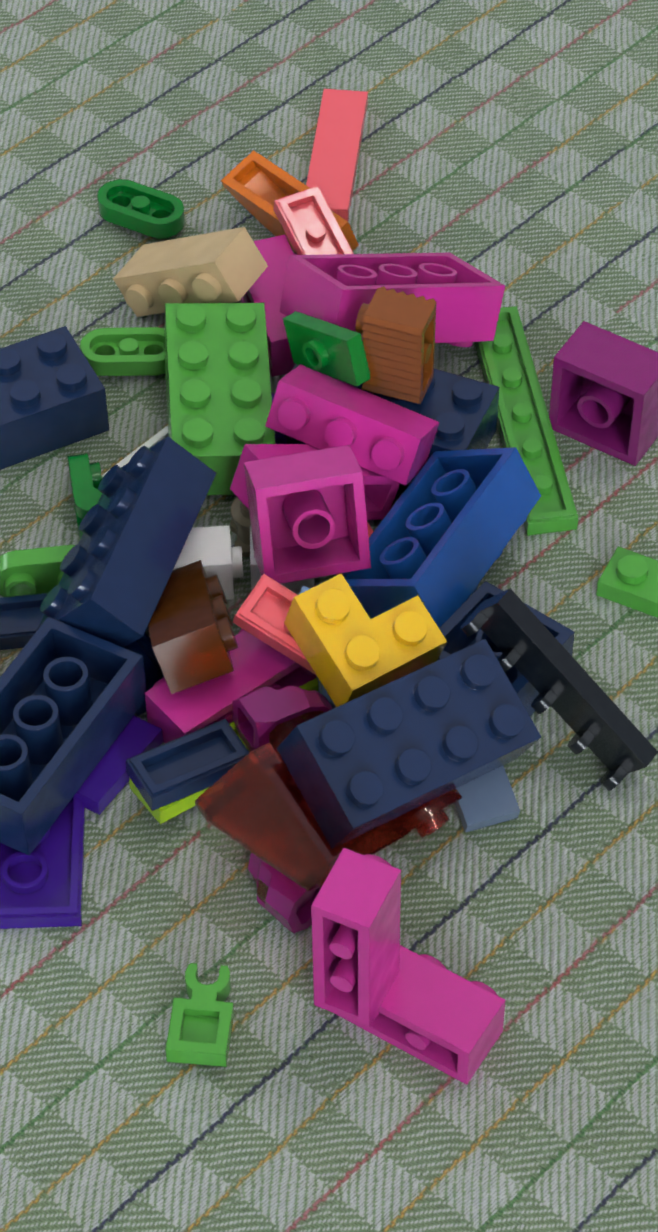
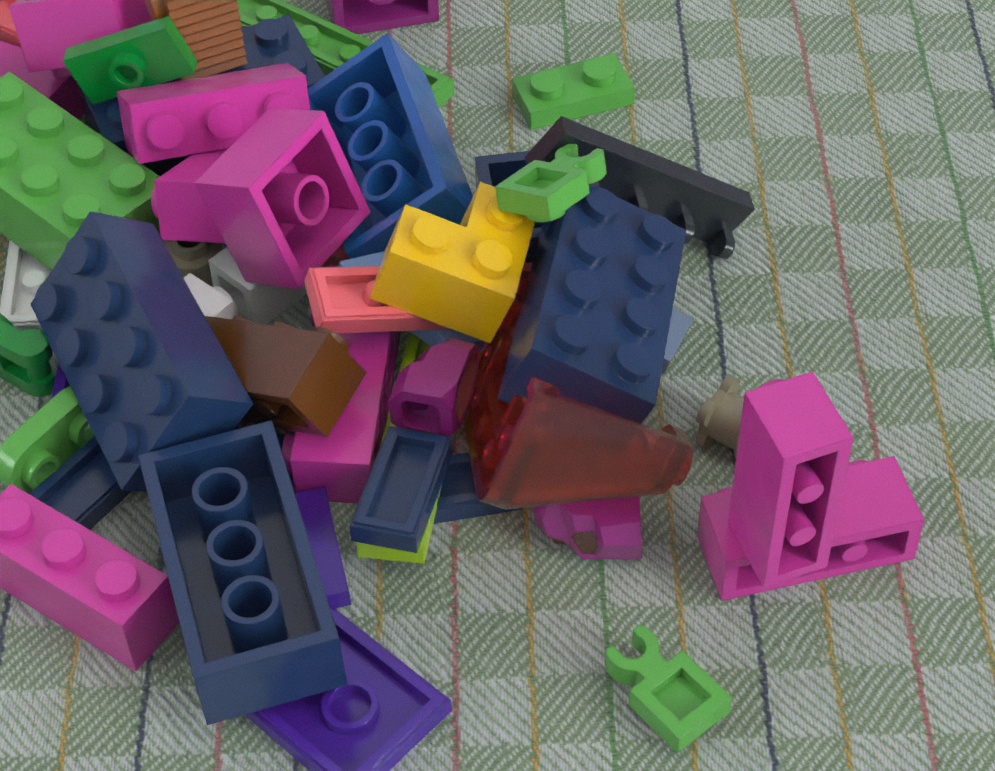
camera: 45 degrees left, 0 degrees up
(447, 631) = (548, 189): none -> bright green plate
(452, 897) = (721, 416): none -> dark tan brick

